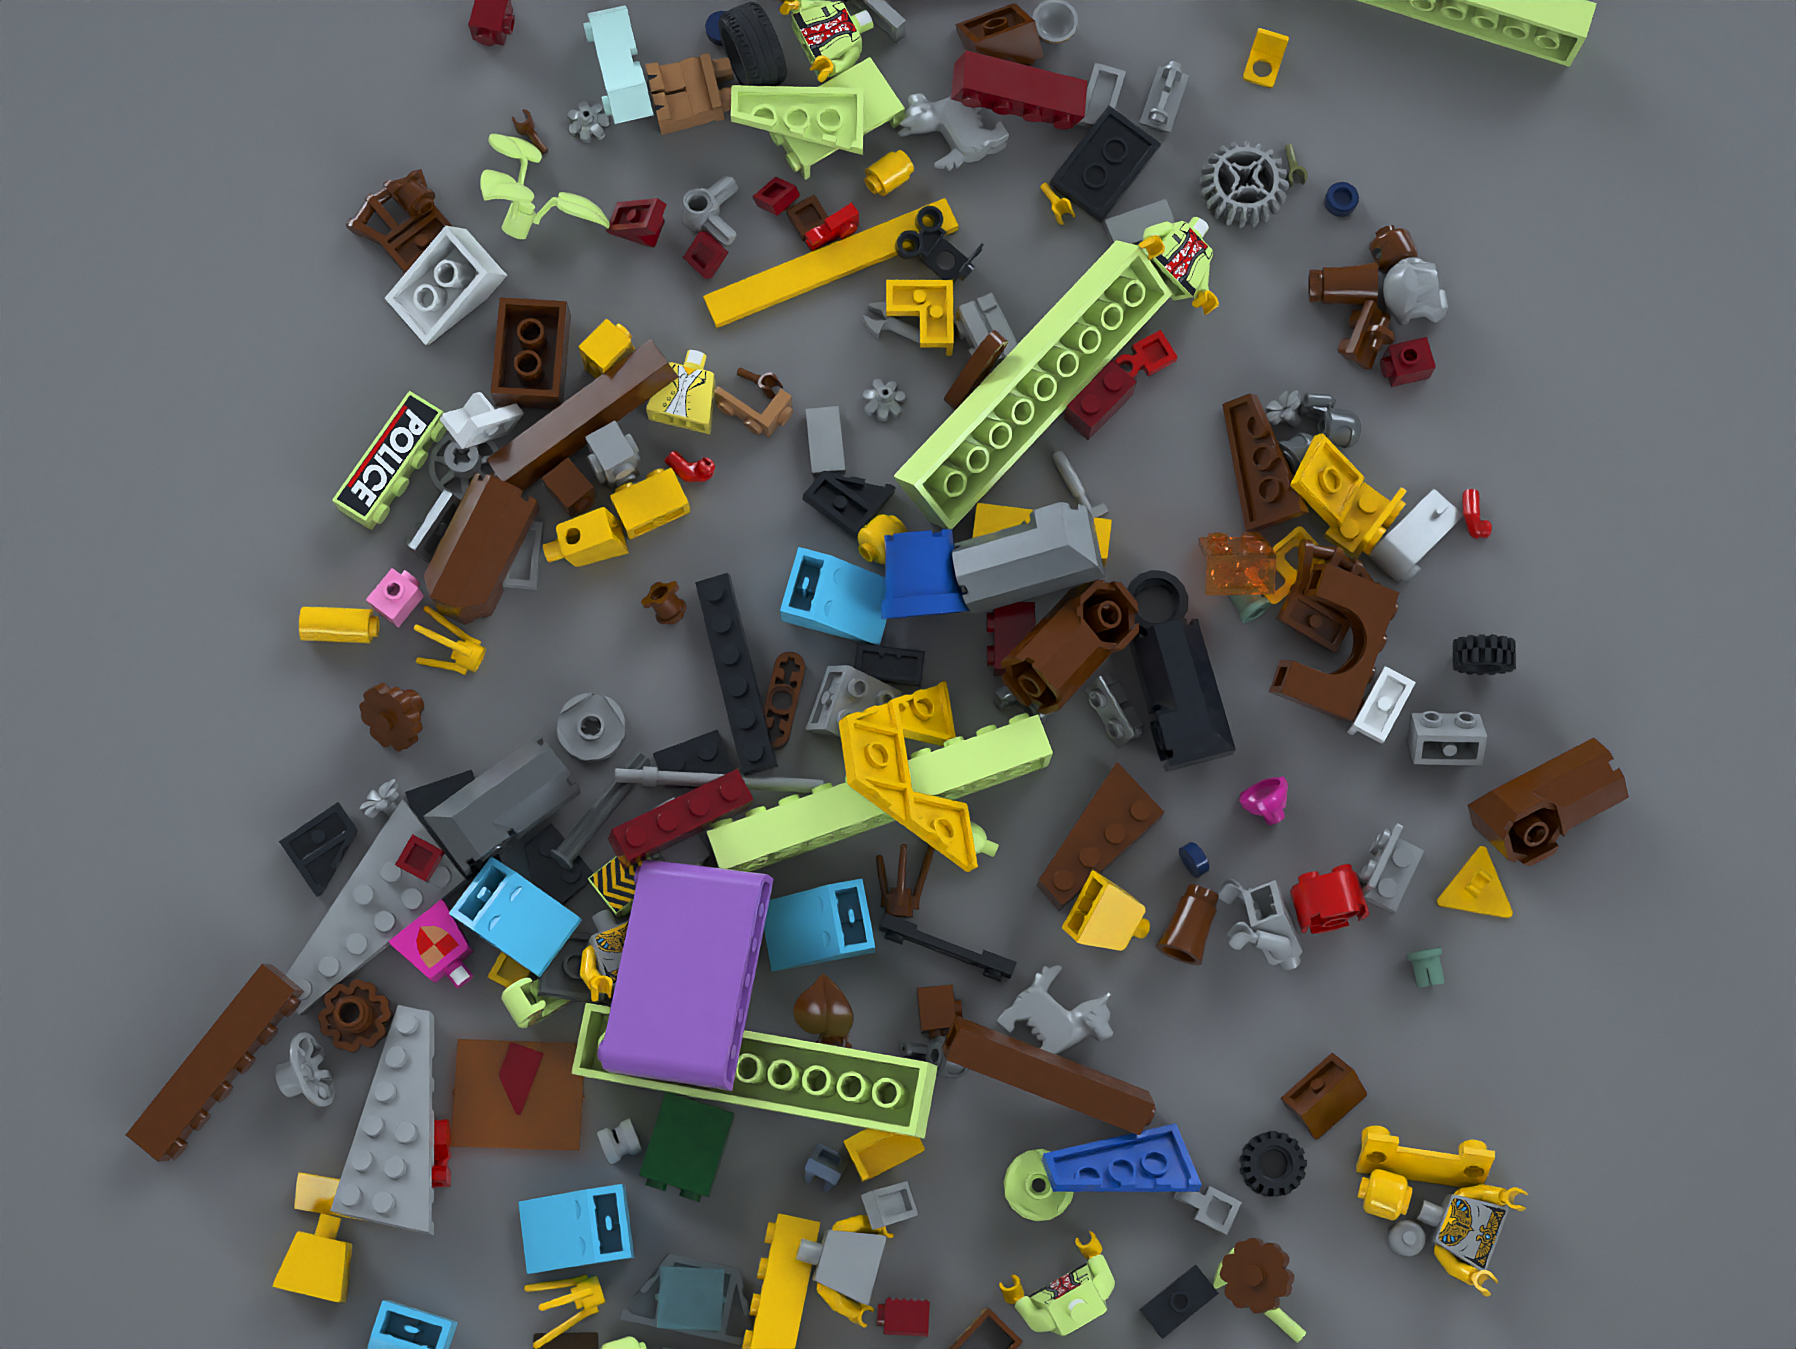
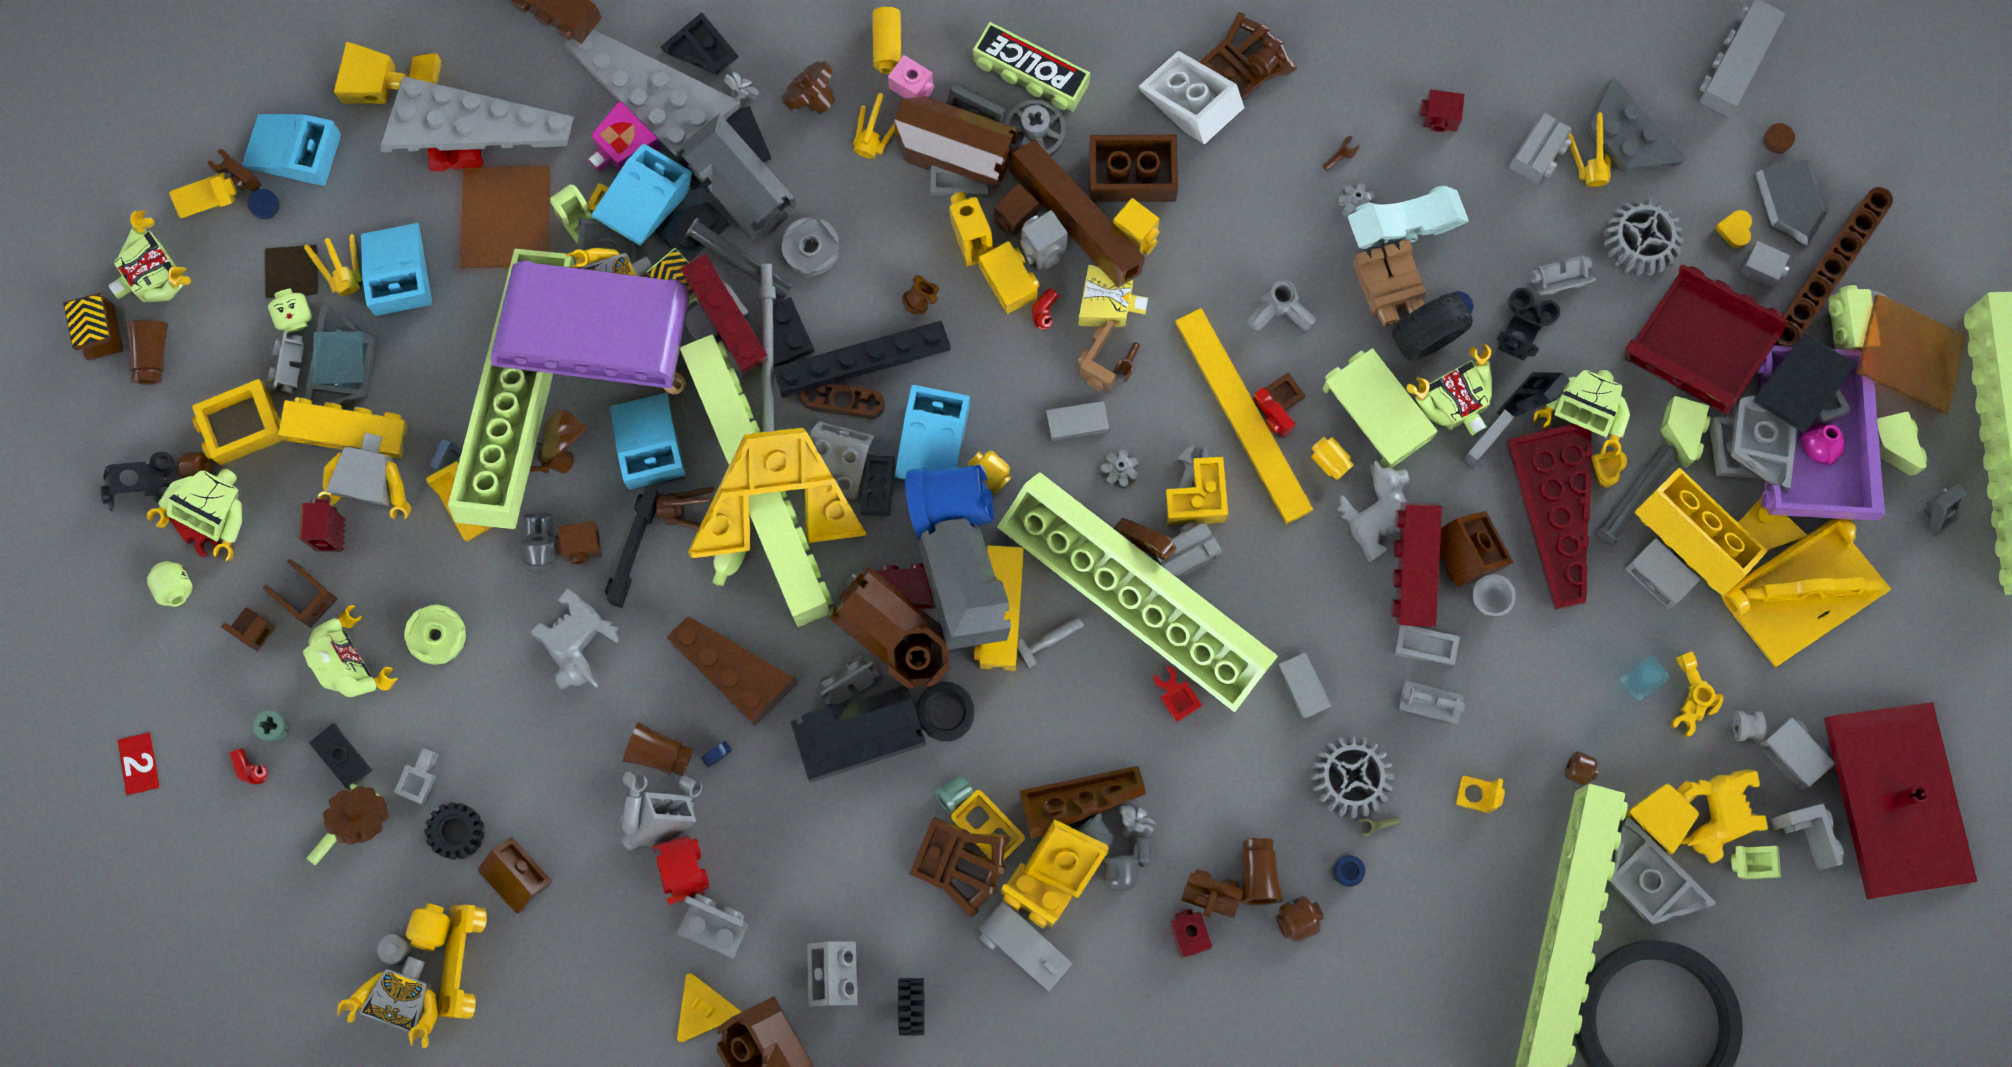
camera: 90 degrees right, 0 degrees up
(302, 1072) = (514, 50): light grey wheel -> none
(355, 1016) = (564, 85): reddish brown plant -> none
(420, 858) = (686, 115): dark red plate -> none
(480, 421) = (1067, 131): white panel -> none
(519, 1073) = (521, 215): dark red tile -> none
(521, 212) = (1267, 121): yellowish green plant -> none
(620, 1141) = (466, 295): light grey wheel -> none
(638, 221) = (1264, 249): dark red slope -> none
(686, 1146) = (455, 346): dark green brick -> none
(705, 254) = (1238, 306): dark red plate -> none
(776, 196) = (1299, 362): dark red plate -> none
(808, 113) = (1373, 379): yellowish green wing -> none
(847, 500) = (1023, 441): black wing -> none
(889, 1205) = (412, 509): light grey tile -> none
(930, 243) = (1265, 496): black piece -> none
(1048, 1076) = (518, 631): reddish brown brick -> none
(1059, 206) = (1315, 611): yellow hand -> none
(1100, 400) = (1130, 653): dark red brick -> none
(1105, 164) = (1360, 649): black tile -> none
(1105, 915) = (660, 676): yellow torso -> none
(1125, 1164) = (450, 706): blue wing -> none
(1182, 260) = (1268, 717): torso -> none
(1238, 564) = (983, 779): clear orange bracket -> none
(1266, 799) = (772, 814): dark pink piece -> none
(1368, 611) = (872, 876): reddish brown arch -> none
(1382, 705) = (859, 914): white panel -> none
(1414, 291) = (1256, 938): light grey helmet -> none
(1427, 959) = (628, 962): sand green bush -> none
(1471, 512) = (1048, 997): red arm -> none

